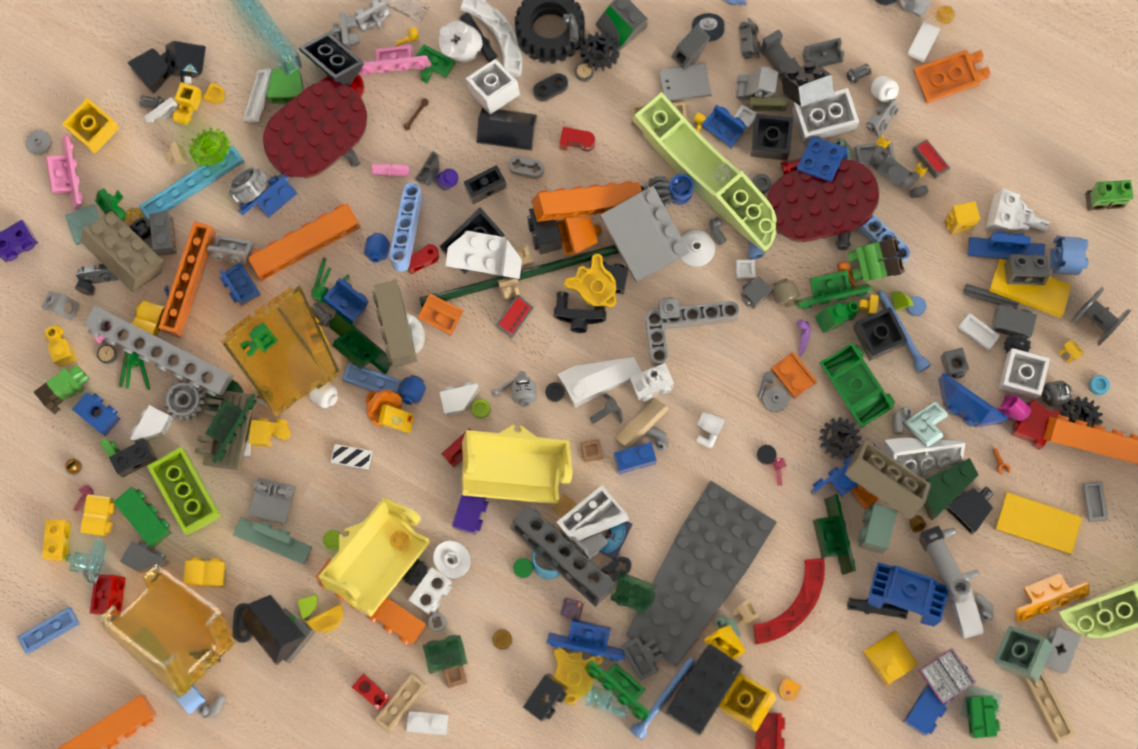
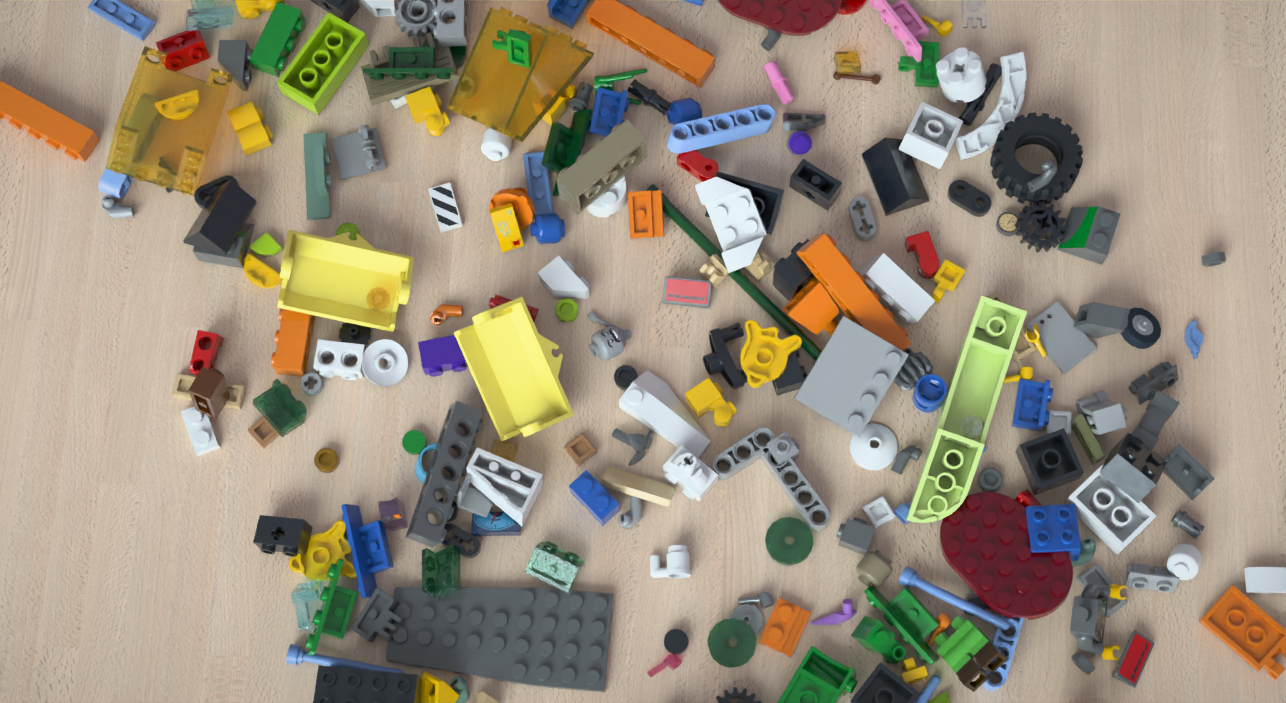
camera: 65 degrees right, 5 degrees down
(158, 617) = (179, 106): none -> yellow tile
(349, 266) = (649, 97): none -> black pin
(402, 114) = (847, 62): none -> clear yellow plate
(408, 699) = (209, 392): none -> reddish brown brick
(434, 498) = (444, 311): none -> orange arm
(592, 171) = (895, 288): none -> white wedge
(602, 341) = (708, 397): none -> yellow brick
(603, 133) = (947, 278): none -> yellow plate
(669, 511) = (554, 565): none -> clear green bracket
(677, 98) = (1034, 337): none -> yellow hand
(728, 347) = (789, 553): none -> clear green plate
(797, 416) = (719, 642): none -> clear green plate
(805, 271) = (910, 578): none -> medium blue piece

